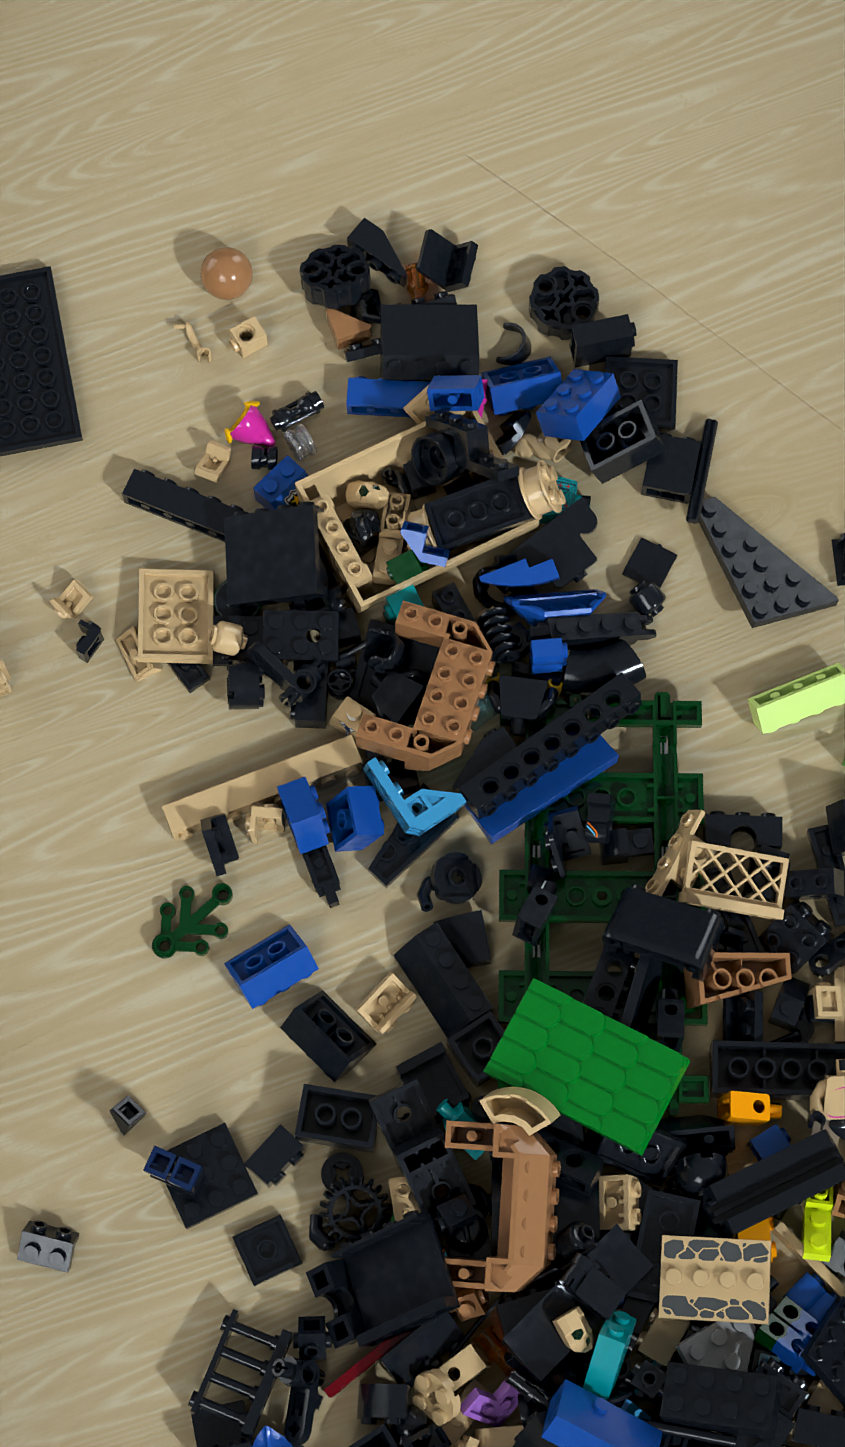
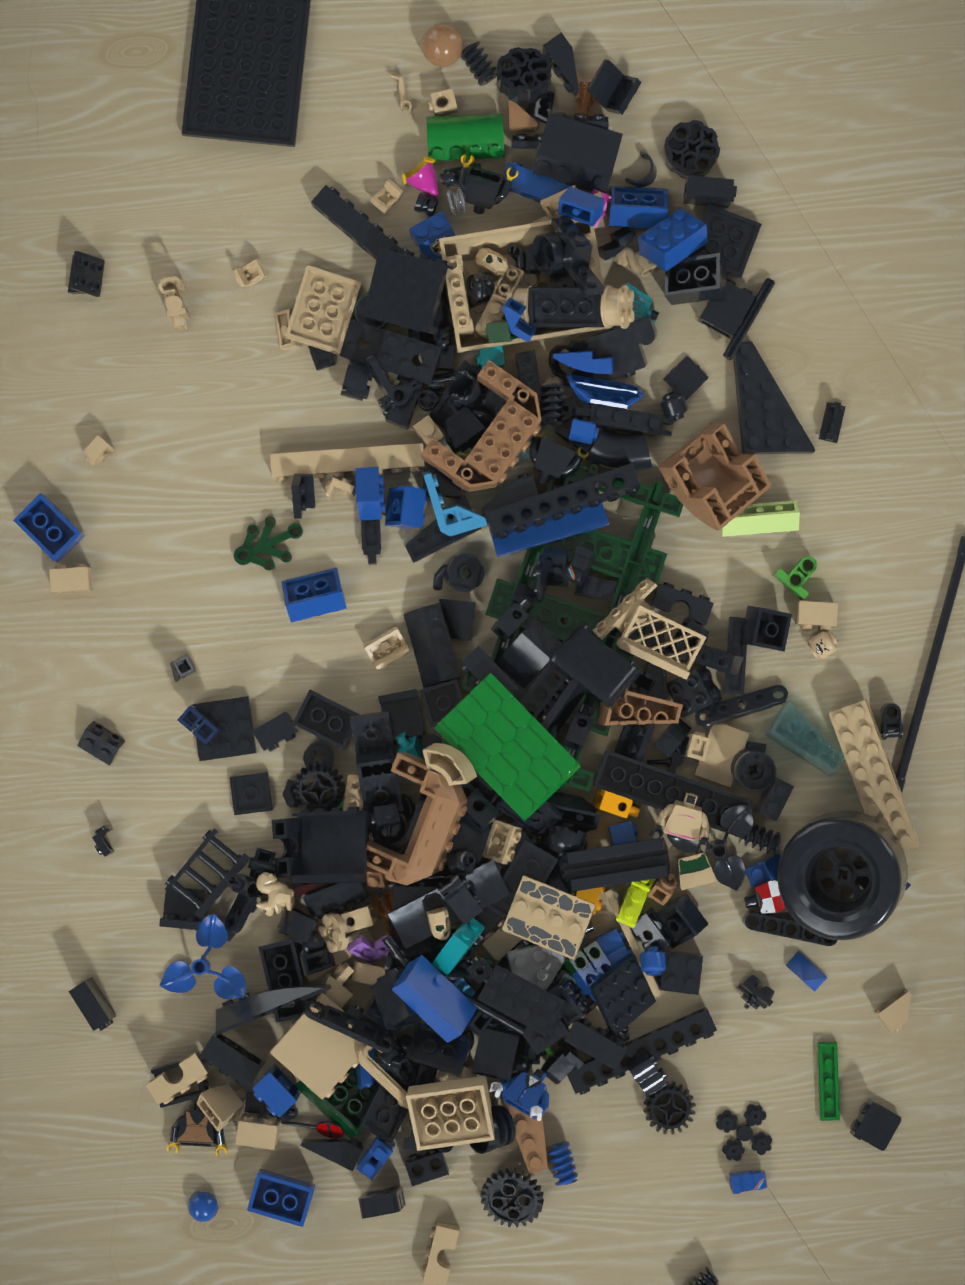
camera: 20 degrees right, 15 degrees up
(88, 1382) = (102, 845): none -> black bracket
(90, 643) = (252, 311): black bracket -> none
(227, 638) = (354, 342): tan head -> none
(276, 283) = (478, 64): none -> black piece
(288, 367) = (465, 135): none -> green brick
(328, 414) = (482, 186): none -> black torso
(328, 1035) = (338, 657): black slope -> none
(346, 1368) = (278, 894): none -> tan animal
(514, 977) = (481, 665): none -> black brick
(572, 948) = (529, 653): none -> black slope
(727, 664) = (714, 476): none -> medium nougat slope

